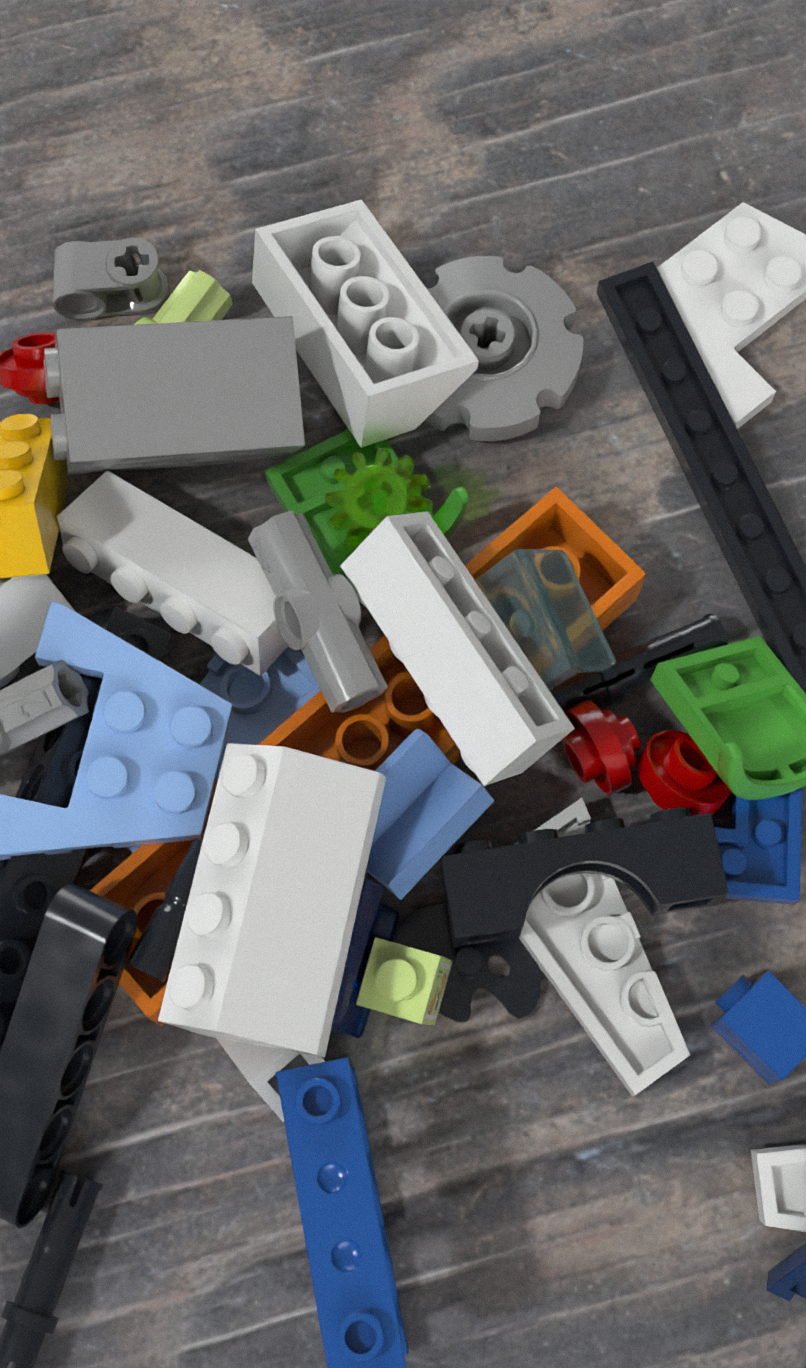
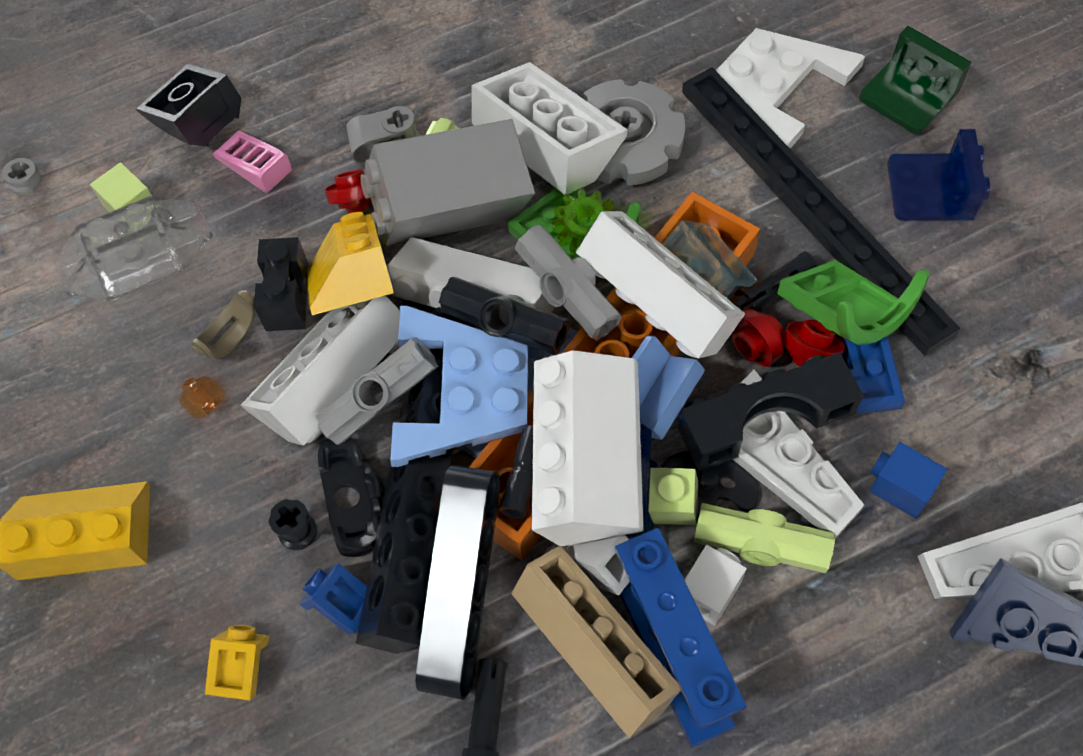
camera: 10 degrees left, 10 degrees down
(228, 1182) = (595, 641): none -> tan brick
(229, 666) = (526, 322): none -> black piece
(429, 1127) = (714, 581): none -> white brick
(527, 1072) = (764, 538): none -> yellowish green piece

